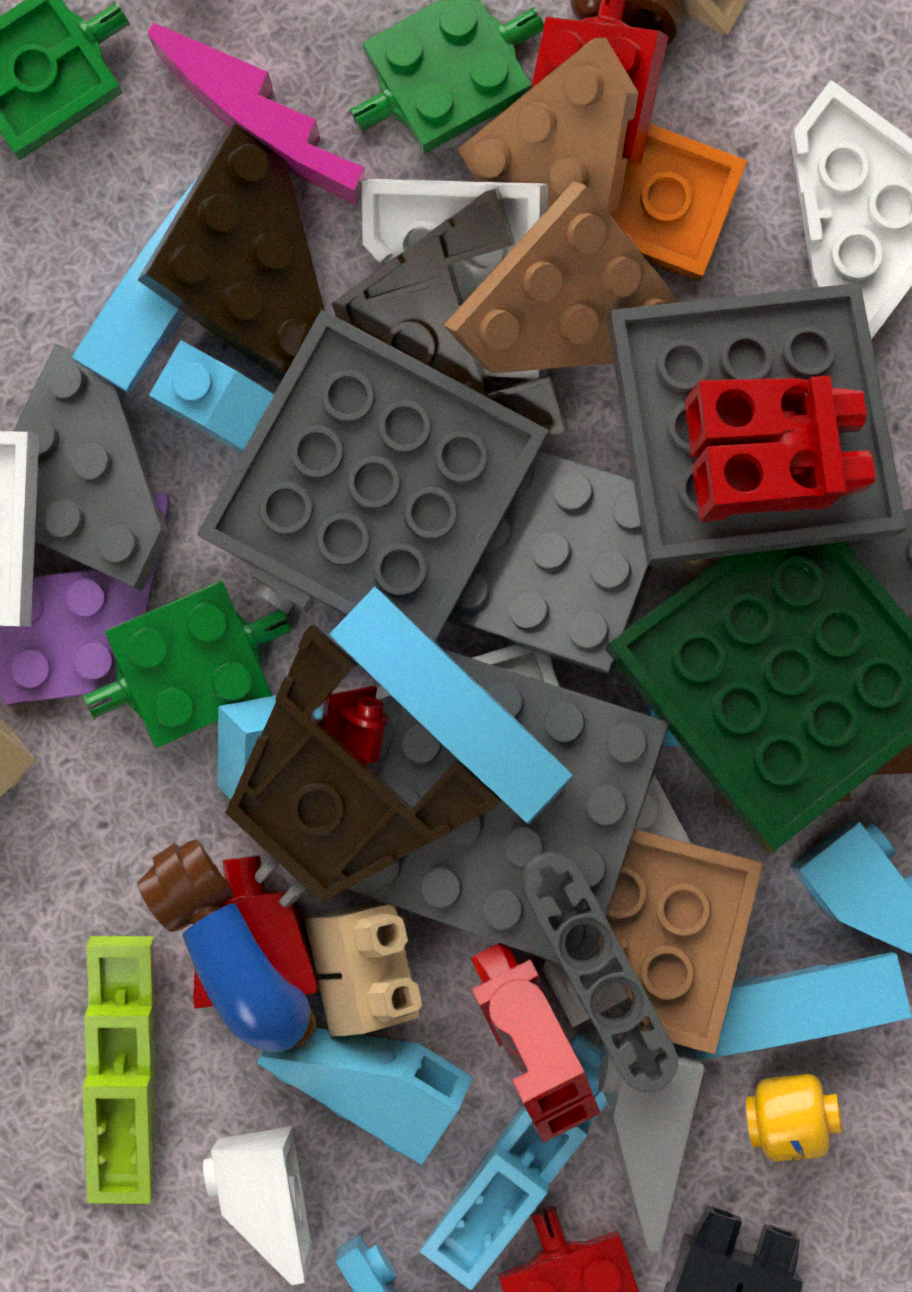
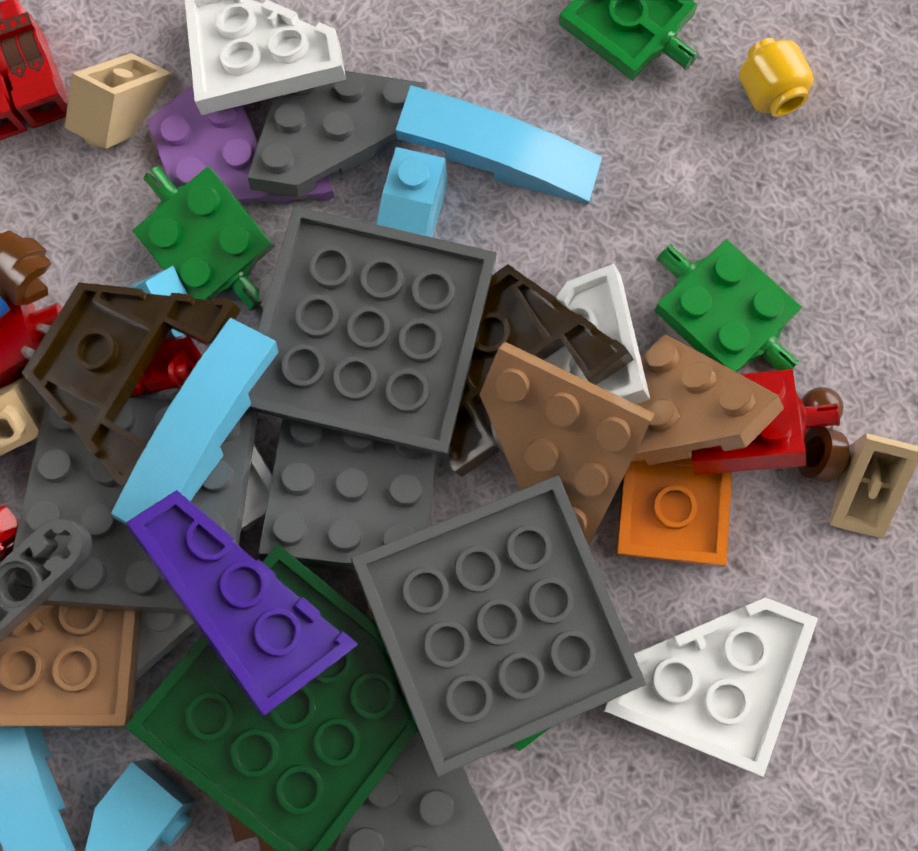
camera: 85 degrees right, 10 degrees down
(241, 255) = (529, 188): dark brown plate -> none
(242, 96) = (649, 166): dark pink slope -> none
(689, 687) = (243, 611): none -> dark purple wing
(774, 445) = (476, 656): red hips -> none

